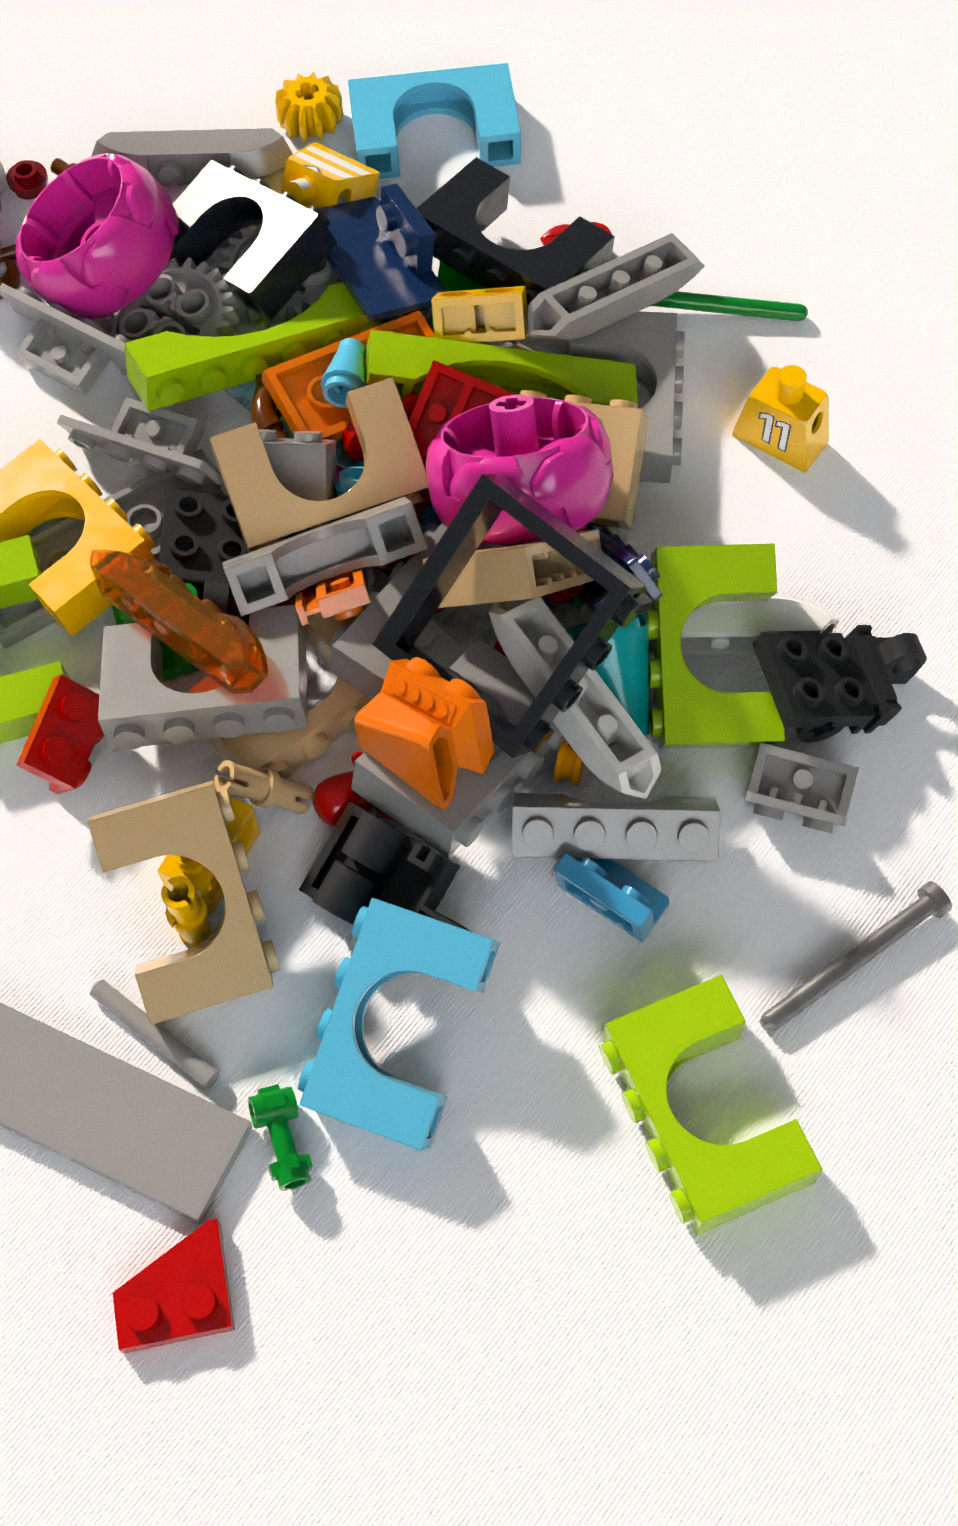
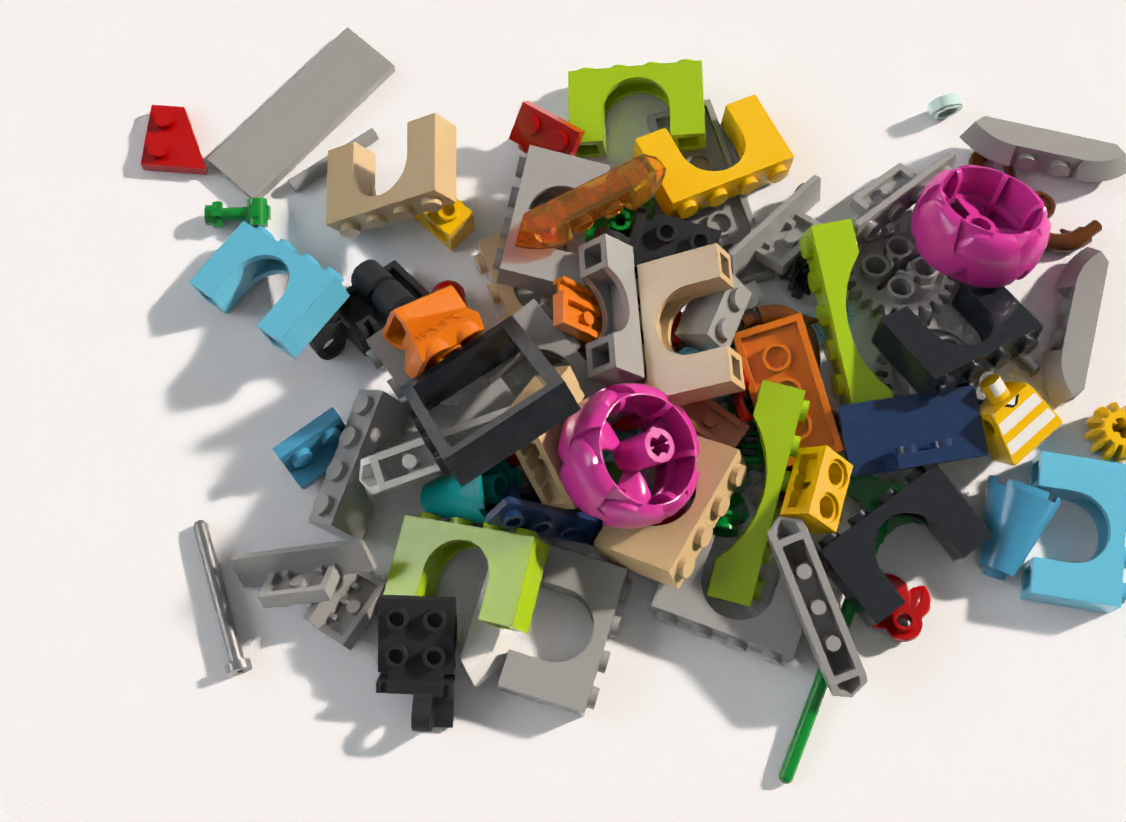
camera: 105 degrees right, 10 degrees up
(27, 179) = (1084, 209): dark red plate -> none
(186, 911) = (392, 174): yellow pin -> none
(210, 420) = (798, 278): none -> black plant
(263, 787) = (465, 248): tan pin -> none
(344, 372) = (782, 370): medium azure cone -> none
(437, 154) = (1016, 519): none -> dark azure cone
(445, 396) = (720, 436): red wing -> none
(708, 1179) = (111, 449): lime arch -> none
(784, 516) = (571, 682): none -> light grey arch
(786, 417) = (665, 712): yellow torso -> none
(797, 839) = (302, 572): none -> light grey bracket

